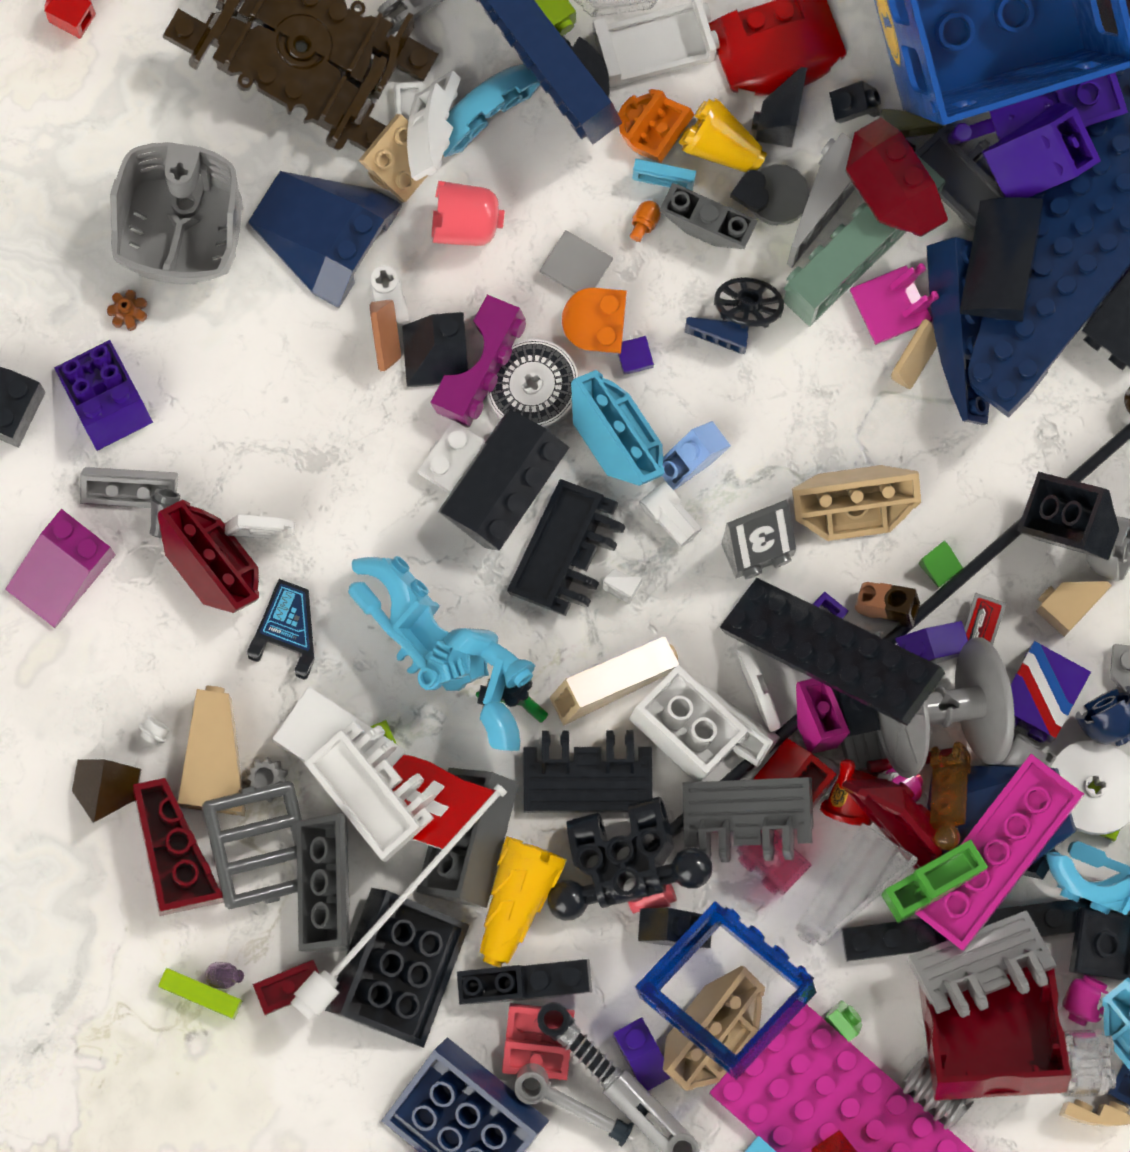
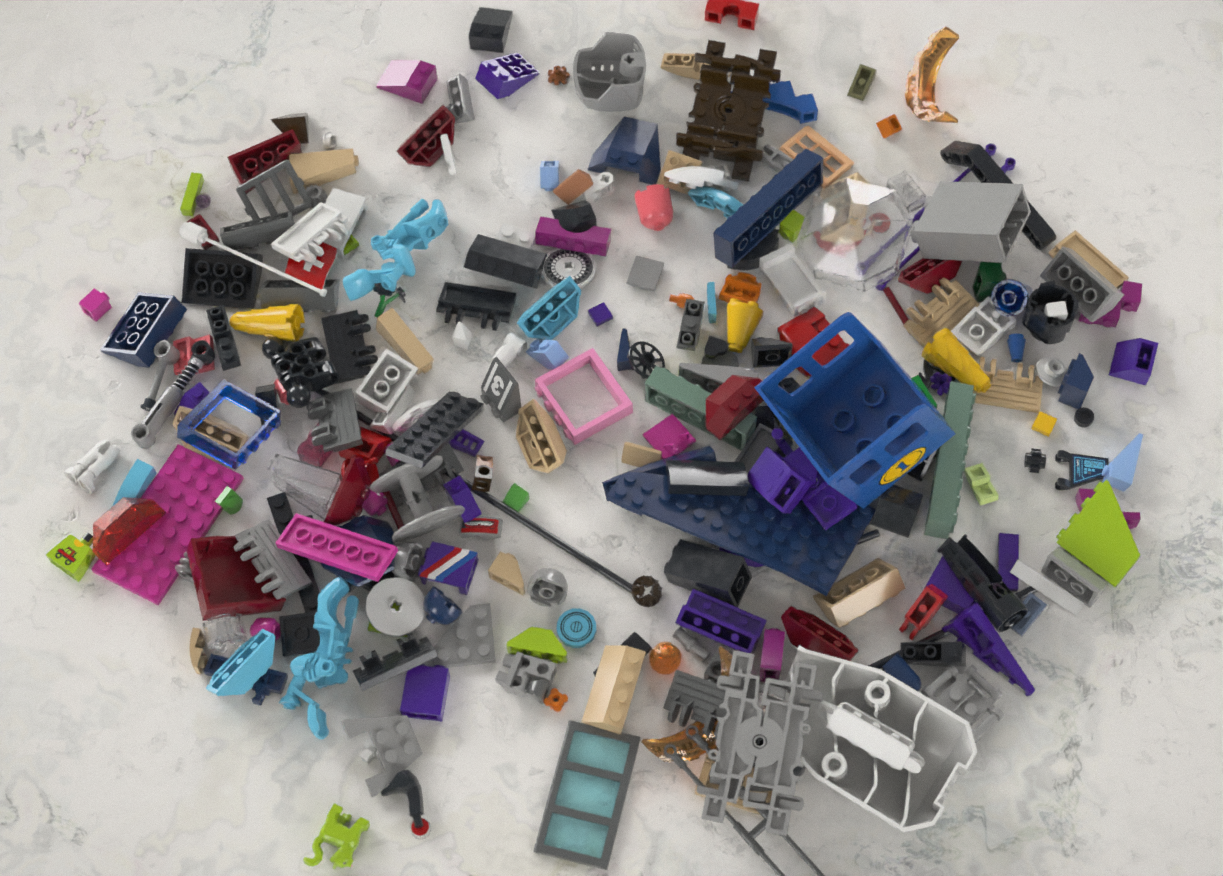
camera: 80 degrees right, 15 degrees down
(178, 89) = (682, 65): none -> tan slope
(287, 625) = (400, 186): flag -> none
(338, 369) = (549, 175): none -> light blue slope
(595, 319) = (612, 287): orange slope -> none
(770, 370) = (577, 435): none -> bright pink window
(934, 881) = (311, 514): bright green slope -> none
(949, 794) = (365, 518): clear orange plate -> none
(1070, 516) = (550, 549): black slope -> none

